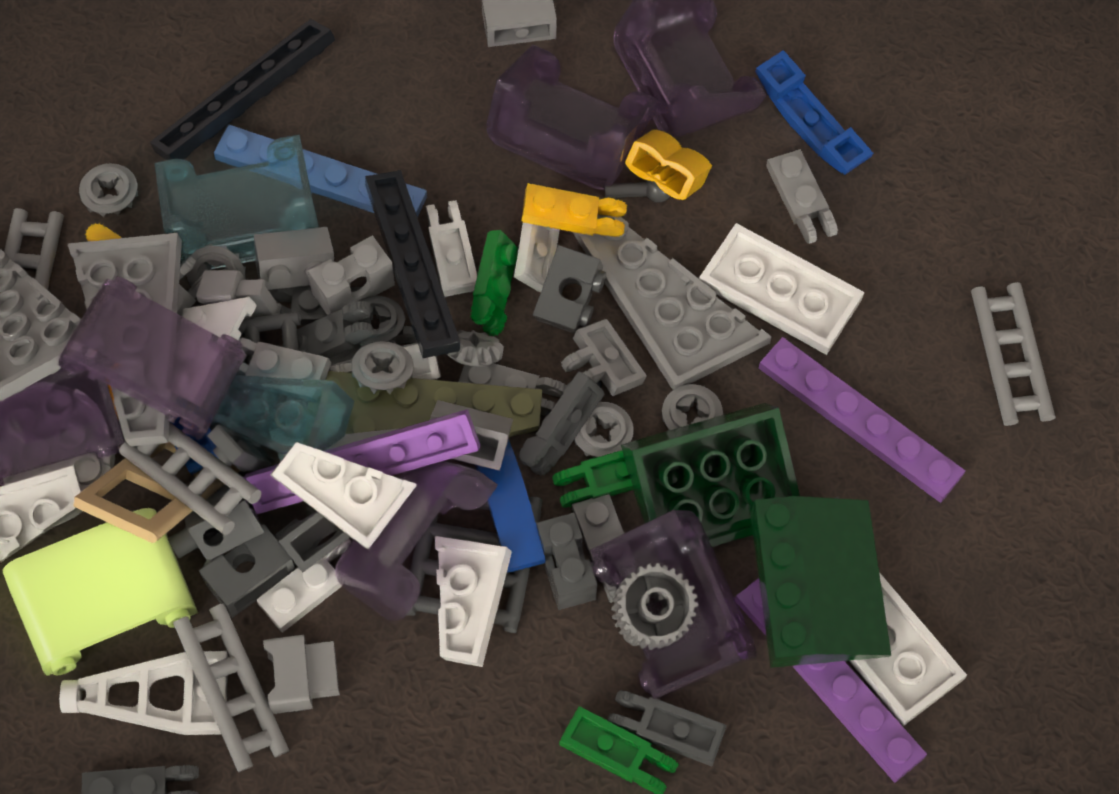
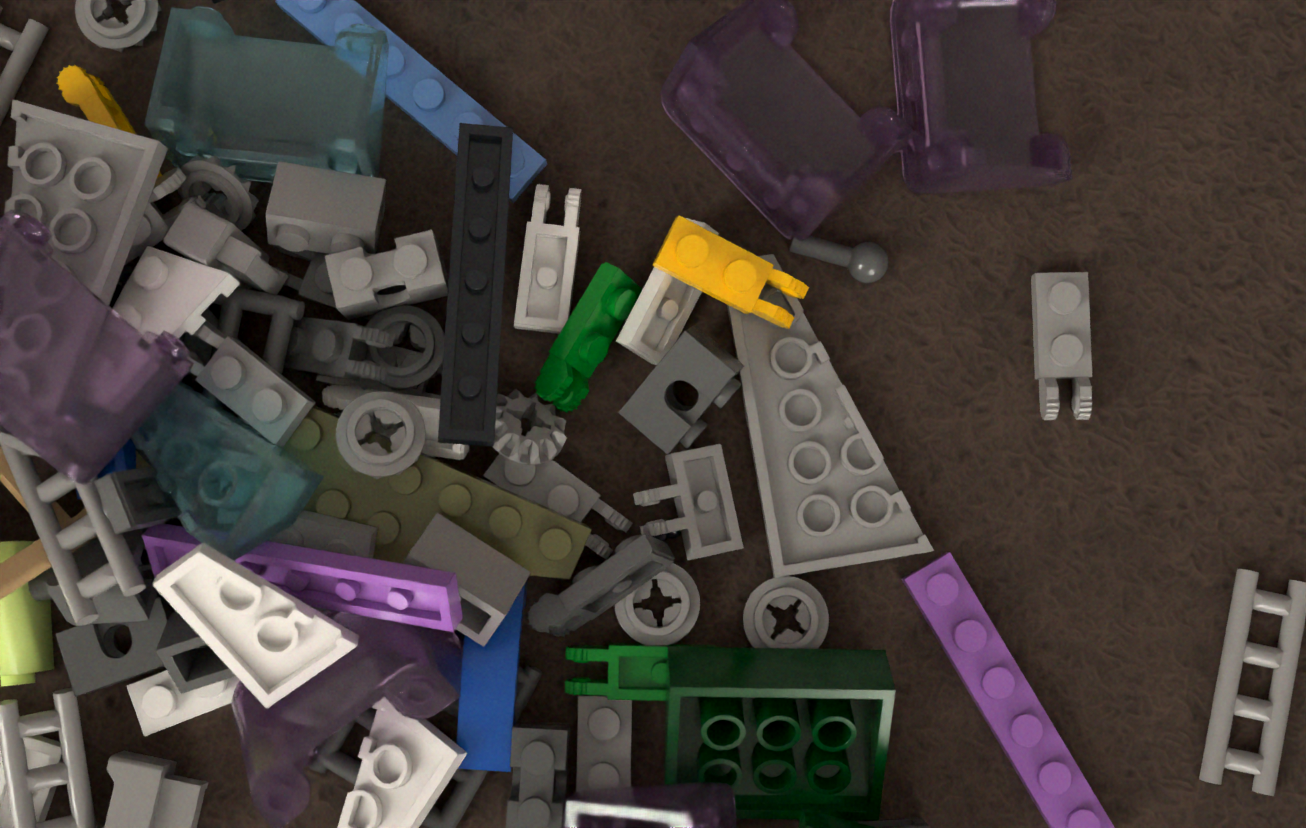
camera: 20 degrees right, 20 degrees up
(663, 160) = (891, 239): yellow brick -> none
(781, 288) = (977, 479): white plate -> none
(808, 116) = (1122, 226): blue slope -> none

